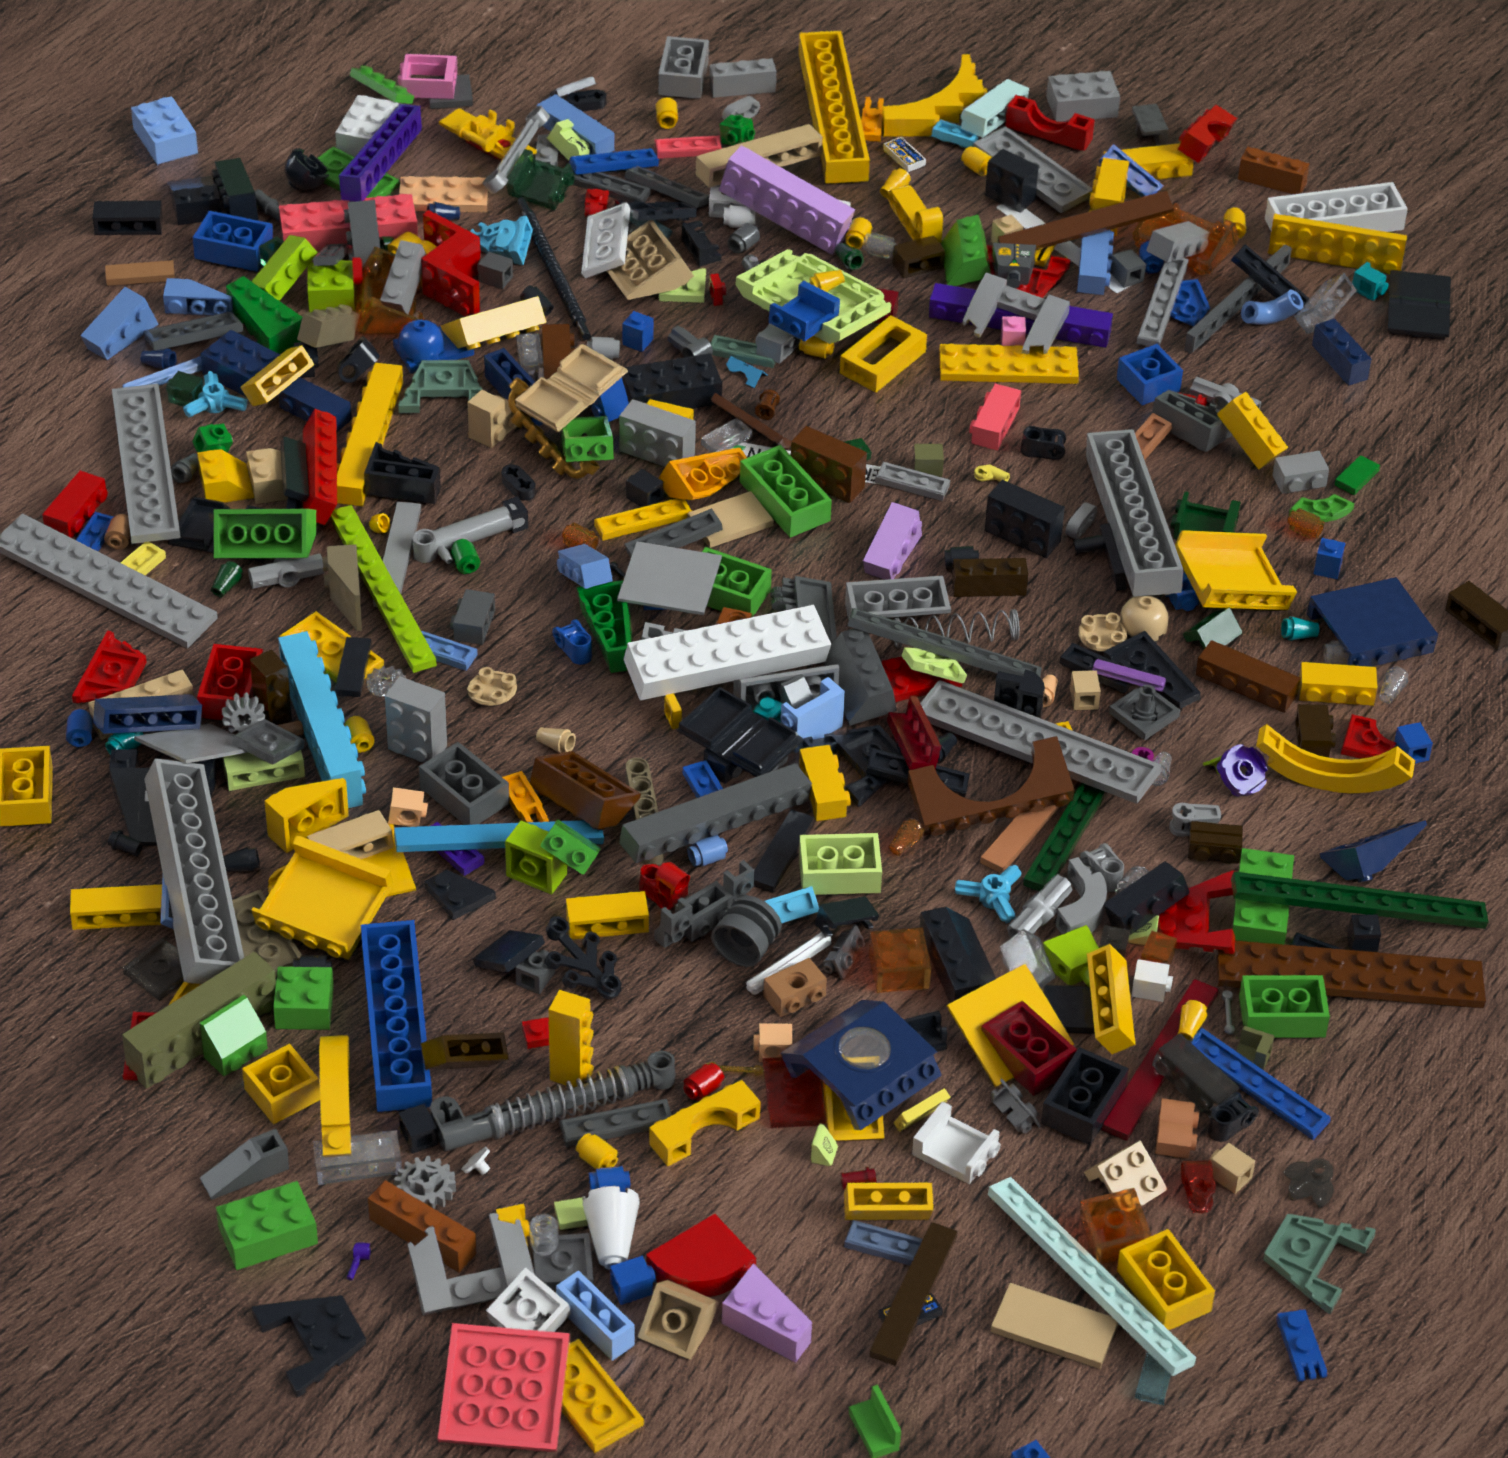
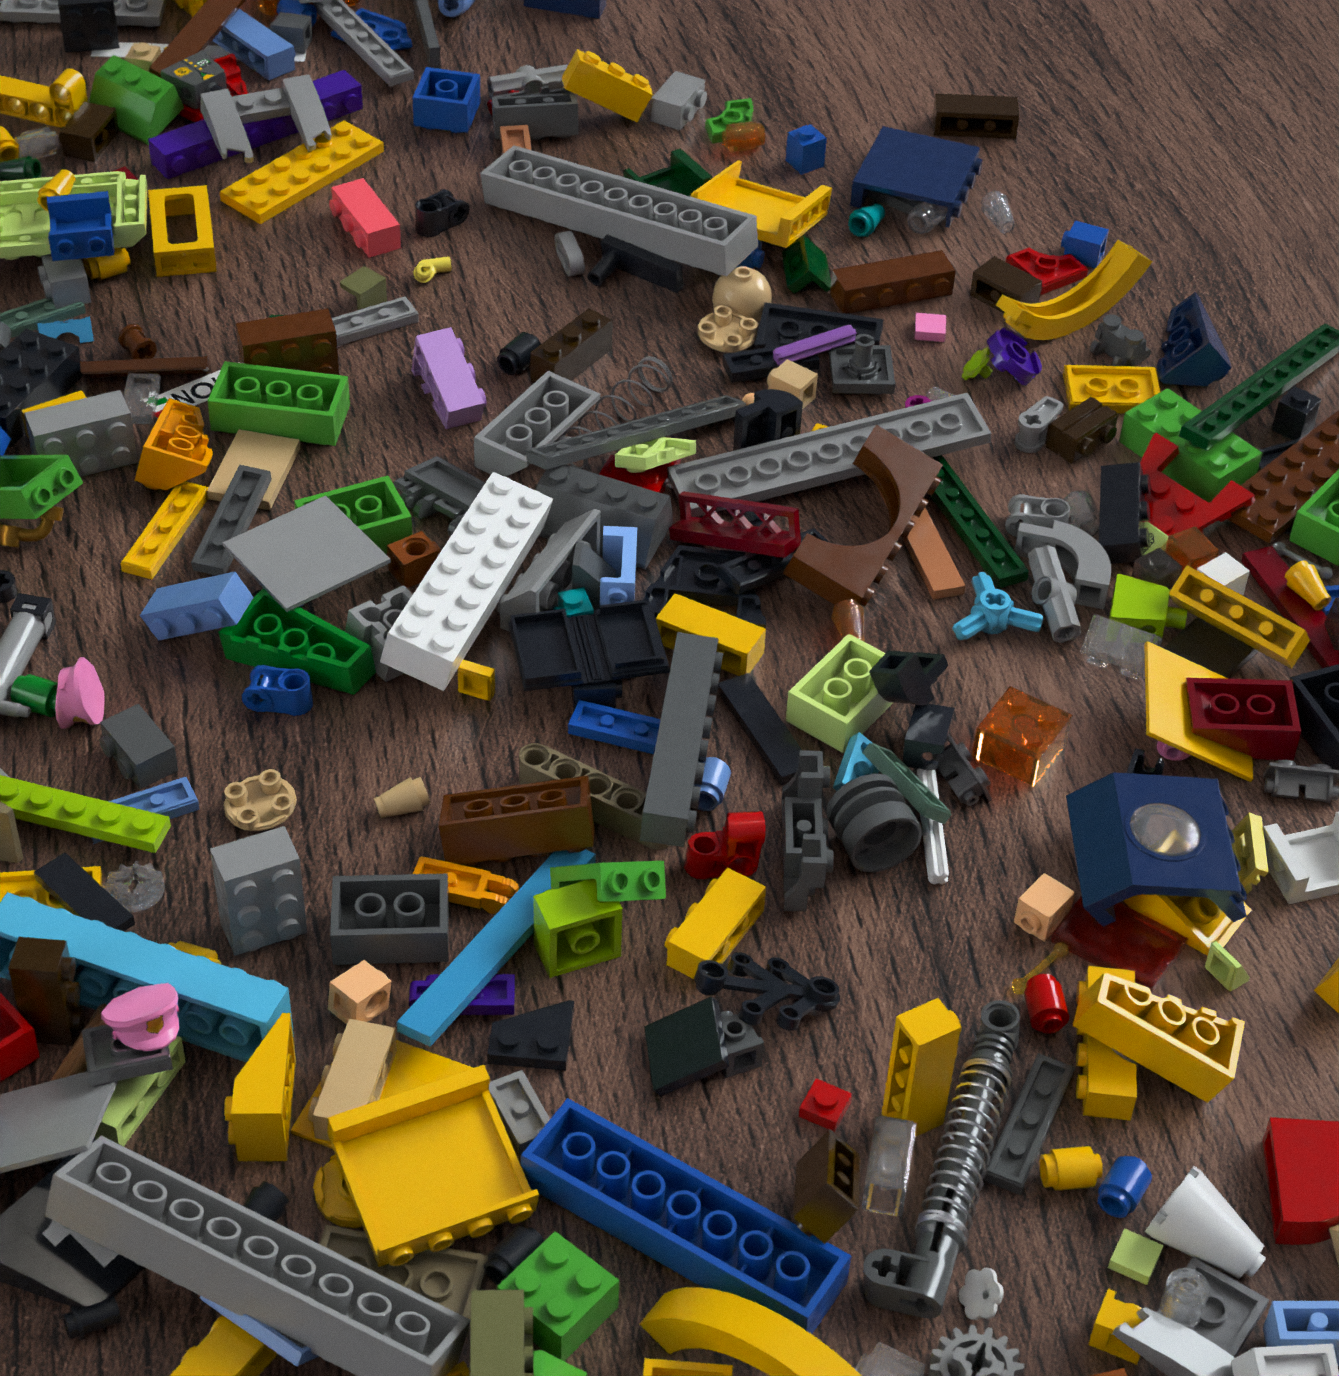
camera: 50 degrees left, 0 degrees up
(242, 706) = (46, 1045): light grey gear -> none
(286, 731) = (144, 1017): none -> bright pink hat
(406, 907) = (518, 1108): none -> light grey plate
(418, 1128) = (877, 1317): black brick -> none
(478, 569) = (79, 695): none -> bright pink hat
(518, 1076) = (889, 1166): none -> clear brick
(576, 535) = (133, 589): clear orange brick -> none
(632, 1280) = (1295, 1263): blue brick -> none
(644, 488) = (131, 499): black brick -> none
(722, 1140) = (1162, 1034): none -> yellow wedge
(795, 929) = (908, 783): none -> sand green tile
(795, 987) = (979, 841): medium nougat brick -> none
(862, 1176) = (1302, 959): dark red pin -> none
(864, 881) = (907, 676): none -> black brick
(955, 952) = (1096, 708): black slope -> none
(976, 160) = (23, 24): yellow brick -> none
(1013, 331) = (275, 139): bright pink brick -> none
(1024, 518) = (532, 279): black brick -> none
(1231, 720) = (930, 327): none -> bright pink tile
(1280, 832) = (1113, 386): none -> yellow tile
(1329, 814) = (1119, 342): none -> dark grey piece
(1337, 683) = (967, 235): yellow brick -> none
(1357, 475) = (717, 77): green tile -> none

